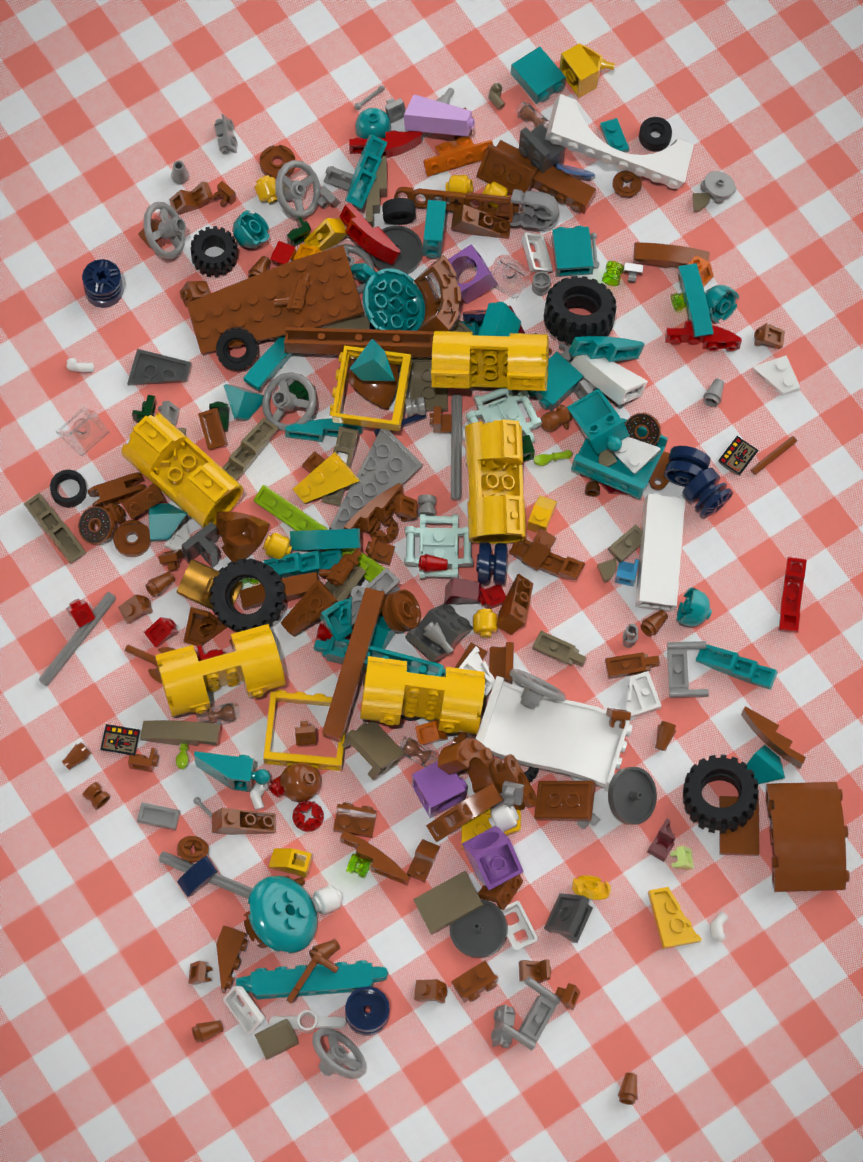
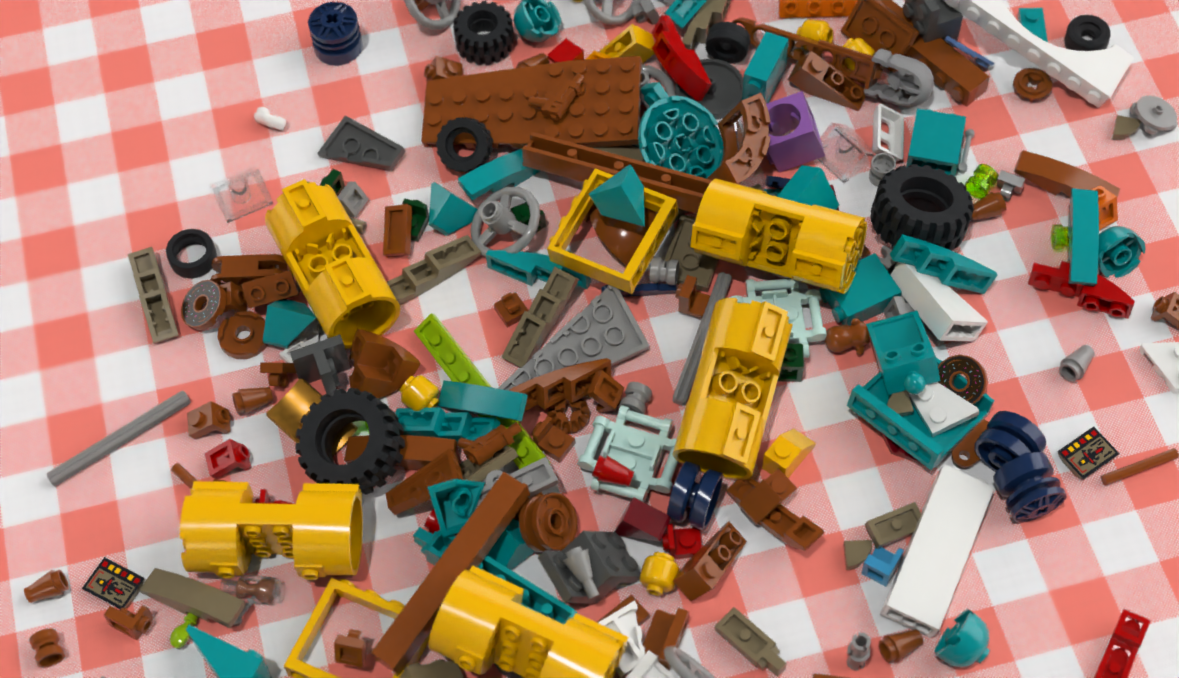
camera: 25 degrees right, 10 degrees down
(80, 612) = (135, 405): red bracket -> none
(202, 627) = (279, 468): dark orange slope -> none
(298, 235) = (595, 40): dark green bracket -> none
(325, 479) = (513, 327): yellow wing -> none
(544, 459) = (815, 384): lime piece -> none
(592, 488) = (869, 440): reddish brown hinge -> none
(623, 291) = (989, 206): none -> dark orange cone

